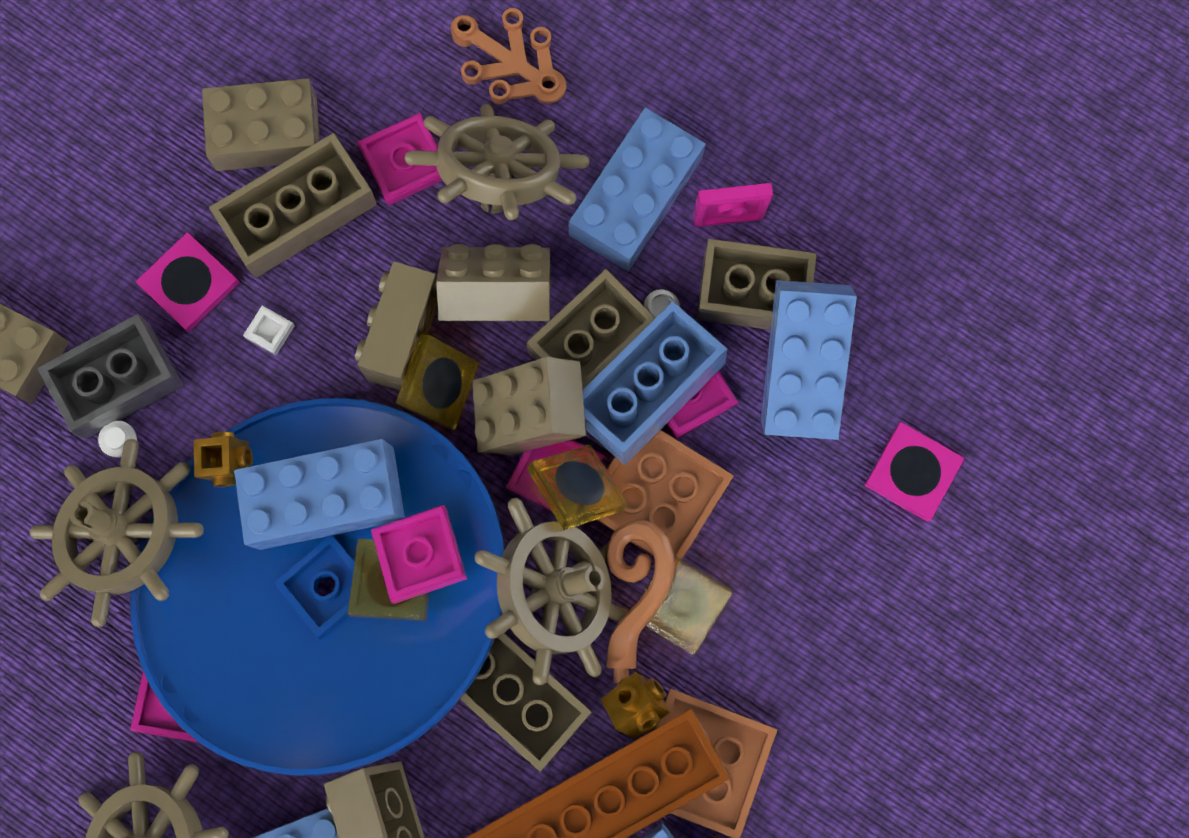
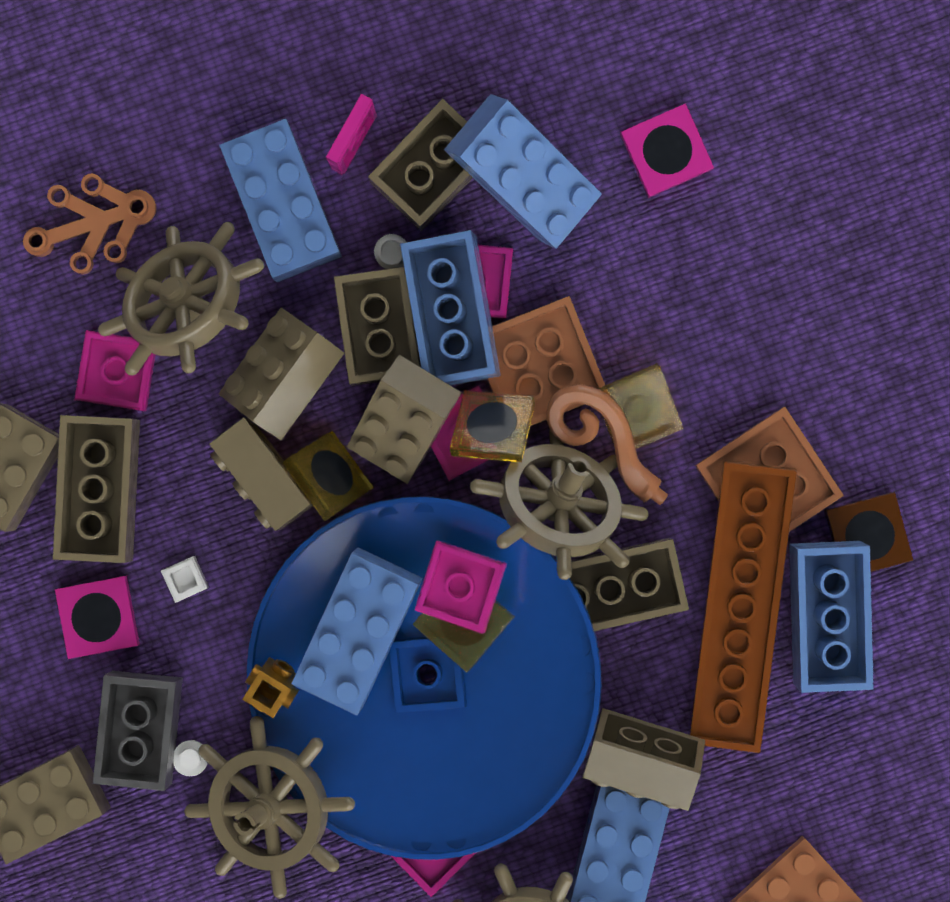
camera: 50 degrees left, 10 degrees up
(636, 705) = (690, 501): pearl gold brick -> none

